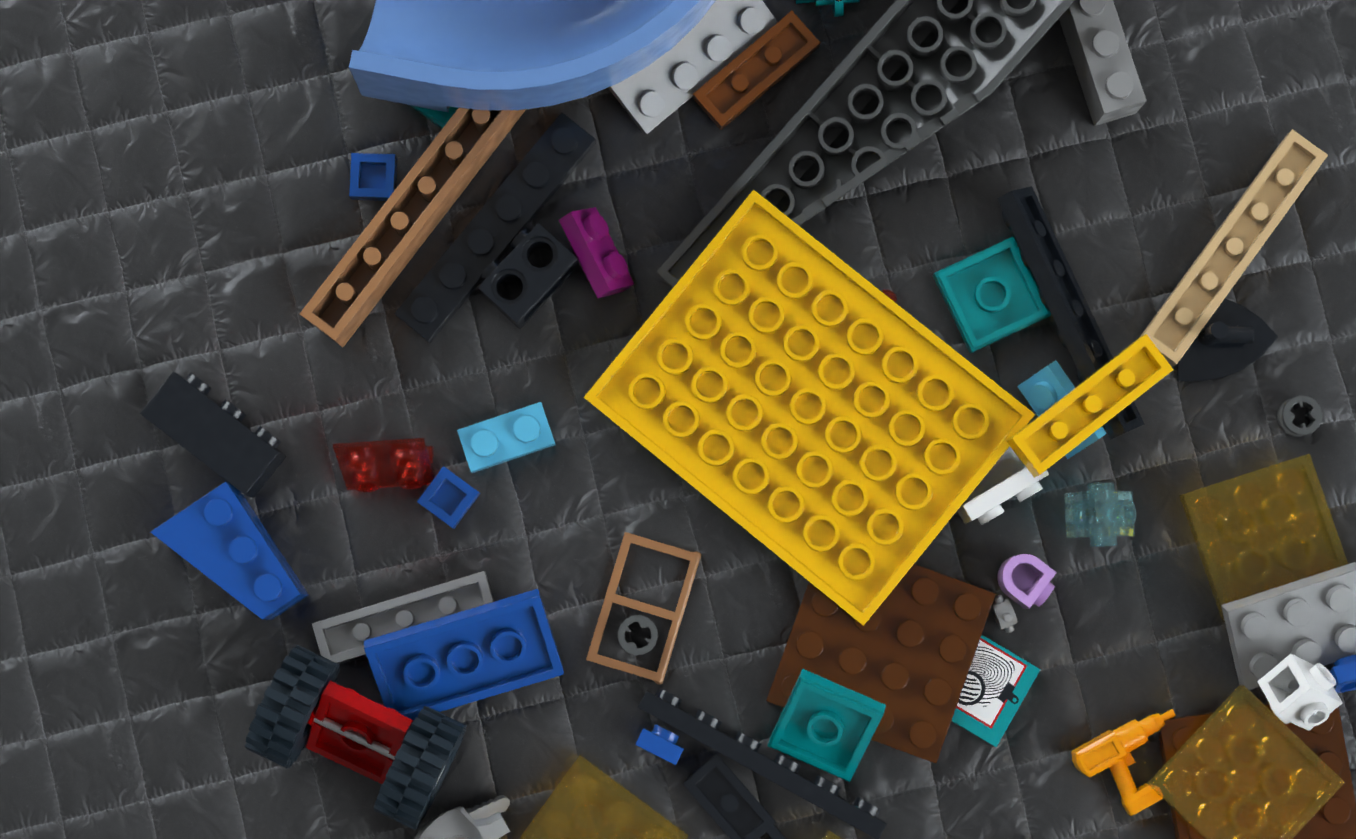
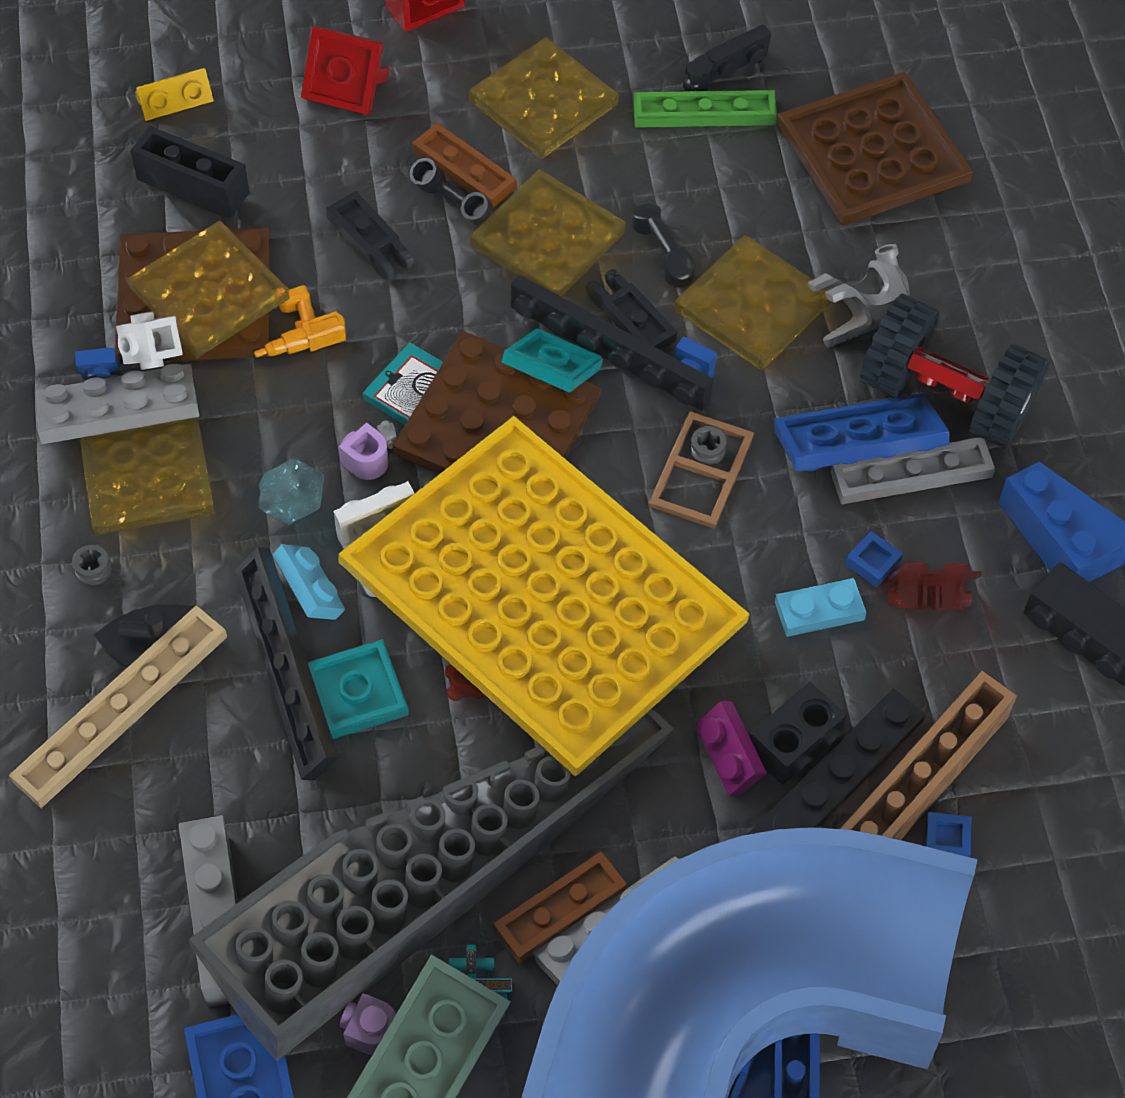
camera: 175 degrees left, 25 degrees down
(1089, 405) = (286, 558): yellow plate -> none

